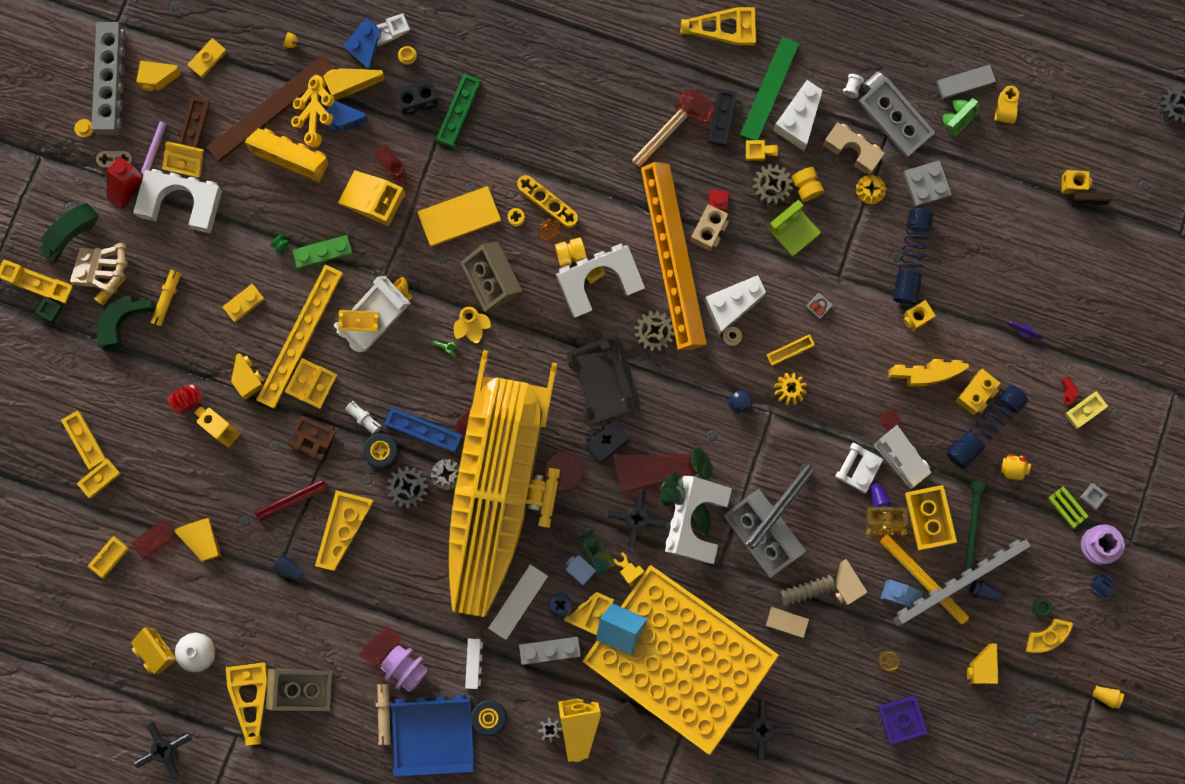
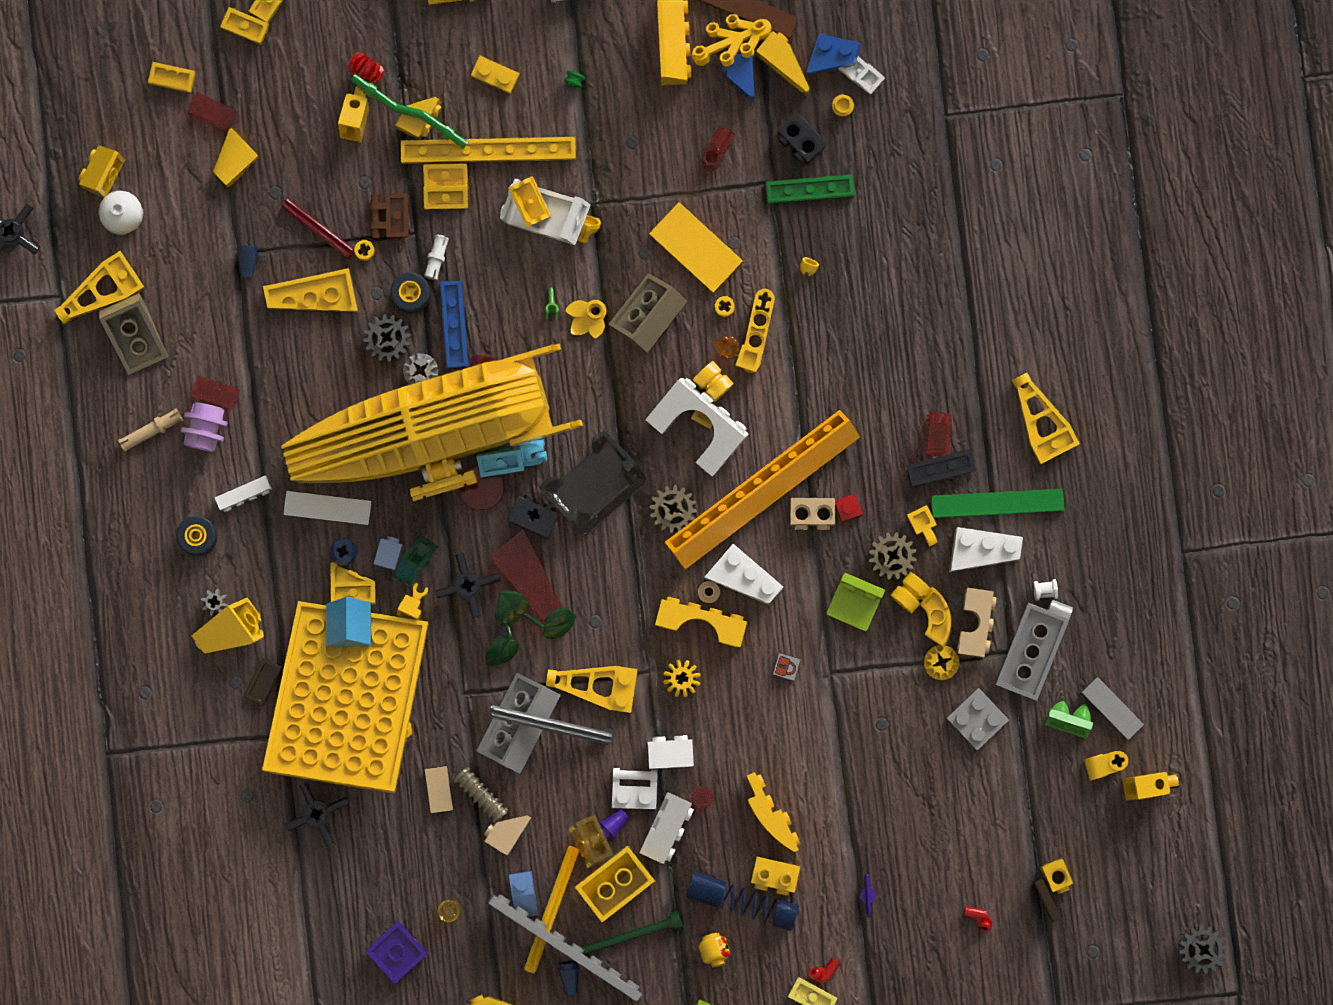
camera: 65 degrees right, 5 degrees up
(204, 401) = (446, 131): none -> green bar
(322, 252) = (588, 127): bright green plate -> none
(324, 476) = (370, 252): none -> yellow bush
(372, 197) = (669, 147): yellow slope -> none
(432, 736) = (152, 489): blue panel -> none
(518, 139) = (808, 265): none -> yellow hinge
(549, 650) = (292, 563): light grey arch -> none
(553, 436) = (511, 459): none -> medium azure plate
(567, 216) = (749, 358): none -> yellow plate
(659, 138) = (885, 413): tan axle -> none
(681, 537) = (467, 639): white arch -> none
(740, 401) = (643, 632): dark blue piece -> none
(769, 335) = (673, 615): none -> yellow arch
(777, 440) = (622, 690): none -> yellow plate
(791, 350) = (724, 660): yellow piece -> none
(836, 174) = (938, 617): none -> yellow tile
(845, 426) = (670, 753): none -> white brick
(909, 281) = (858, 748): dark blue piece -> none
(924, 310) = (835, 779): yellow brick -> none
(1040, 77) = (1149, 785): none -> yellow torso
(1081, 254) = (981, 917): none -> red arm

